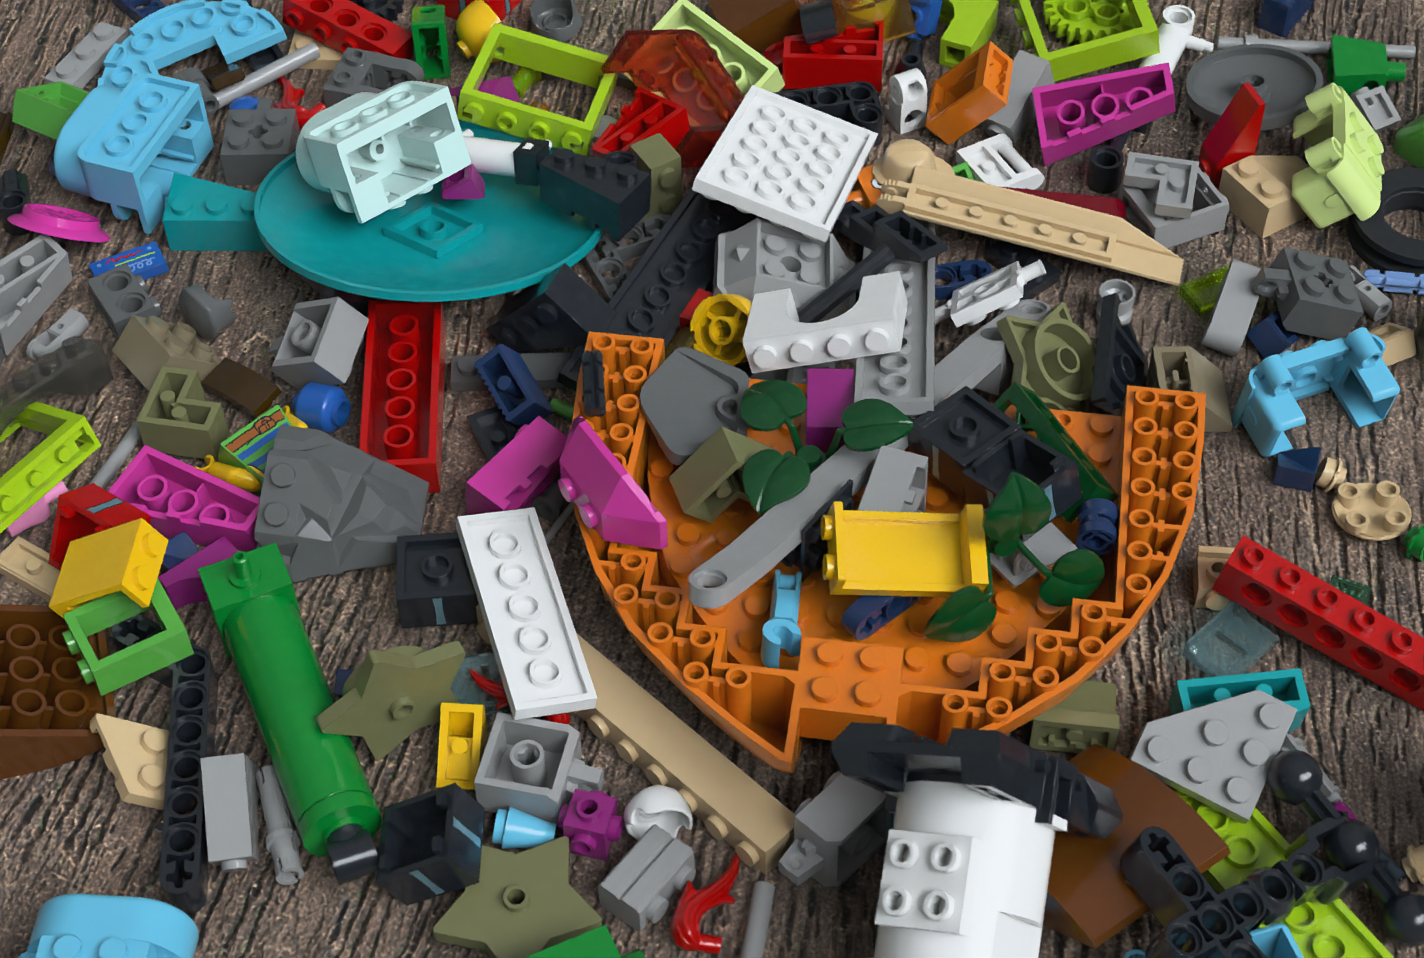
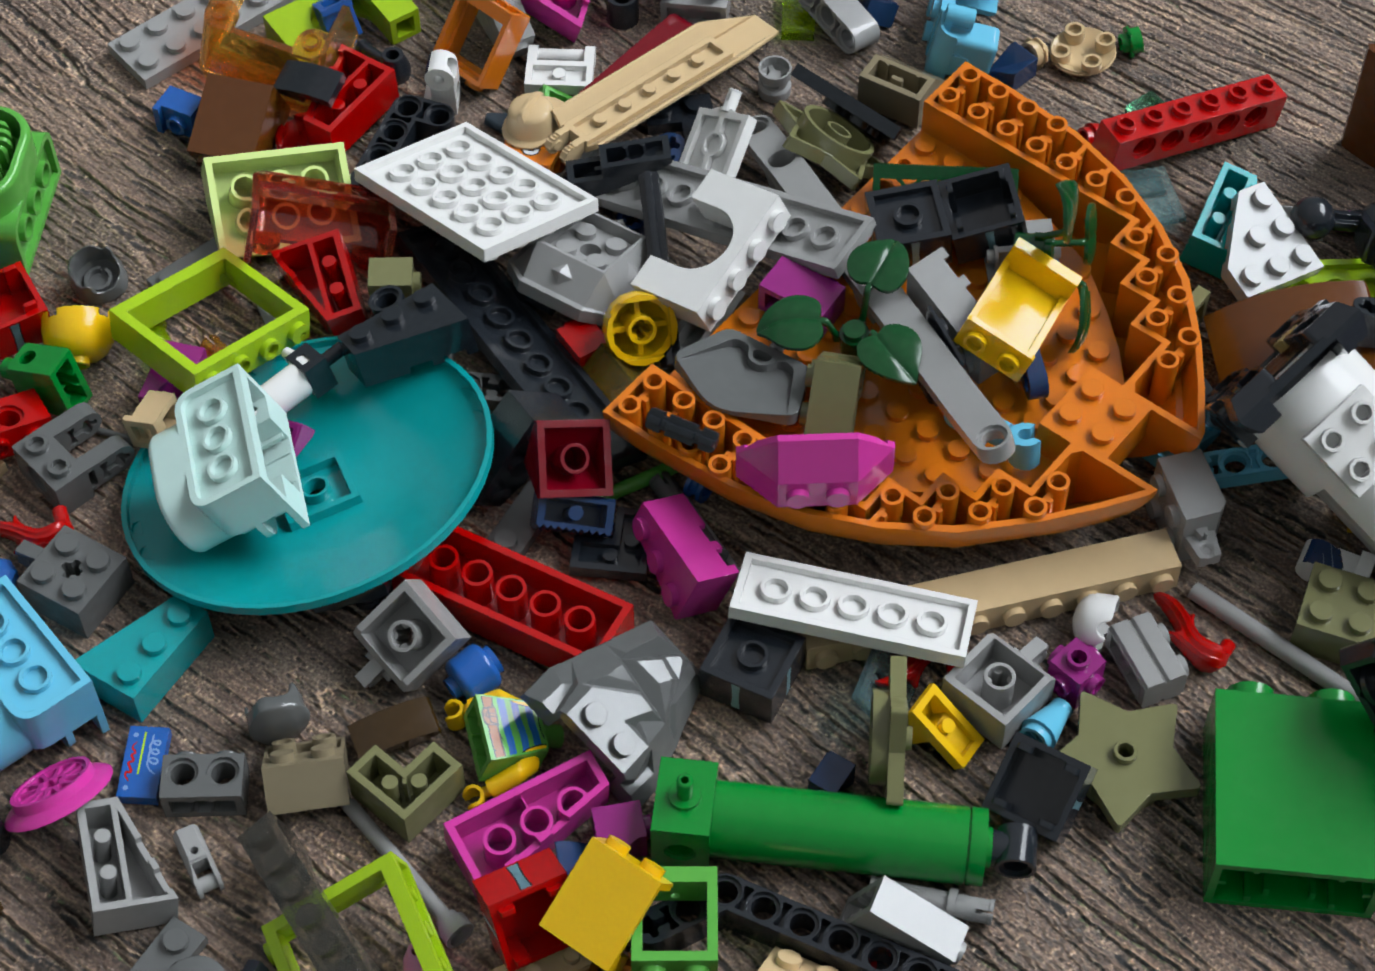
camera: 60 degrees left, 5 degrees up
(539, 345) = (570, 458): none -> dark red slope
(1094, 530) = (1041, 193): dark blue wheel -> none

